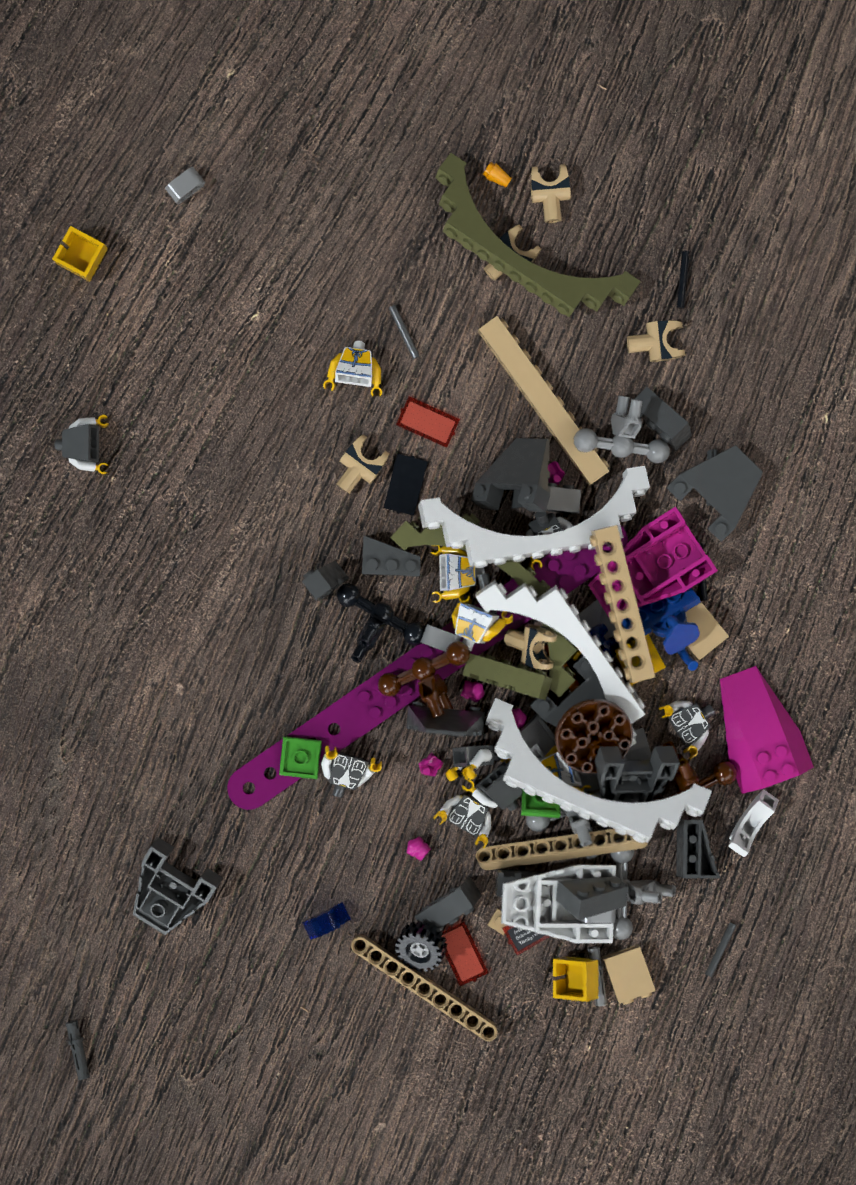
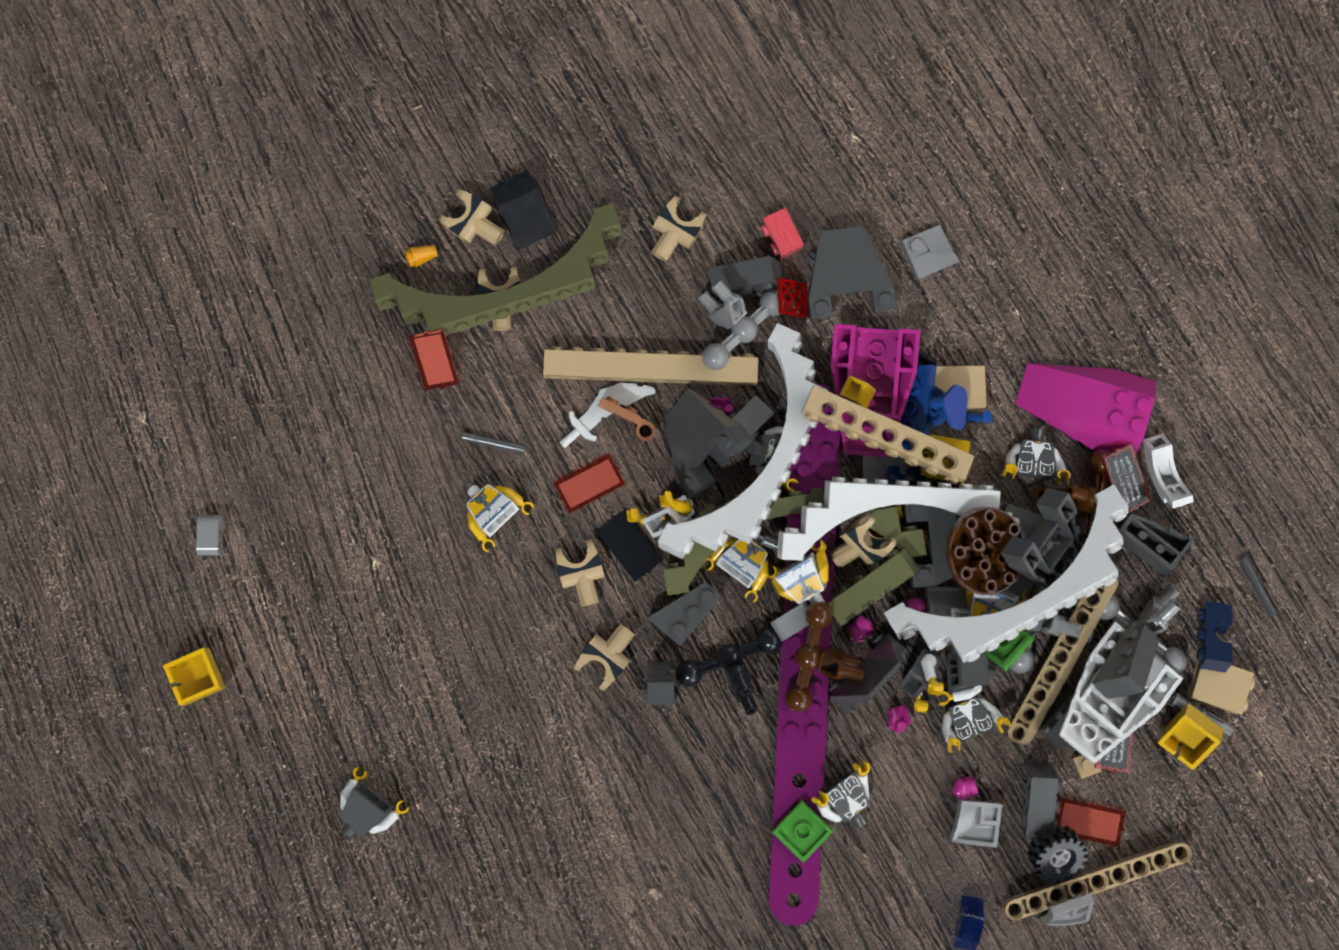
camera: 50 degrees left, 5 degrees down
(318, 528) = (608, 653): none -> tan connector
(387, 985) = (1070, 912): none -> light grey plate
(400, 875) = (977, 823): none -> light grey plate
(429, 243) = (434, 359): none -> clear red piece
(449, 493) = (671, 511): none -> torso
(489, 389) = (623, 392): none -> white sword
(498, 411) = (628, 414): none -> nougat plate
(586, 221) = (523, 209): none -> black slope
(639, 560) = (858, 391): none -> yellow panel
(647, 952) = (1212, 652): none -> dark blue arch
(677, 471) = (781, 297): none -> red window
(683, 279) = (639, 166): black bar -> none
(713, 419) = (782, 234): none -> coral brick
(726, 797) = (1125, 473): none -> piece
(782, 534) = (929, 252): none -> light grey plate

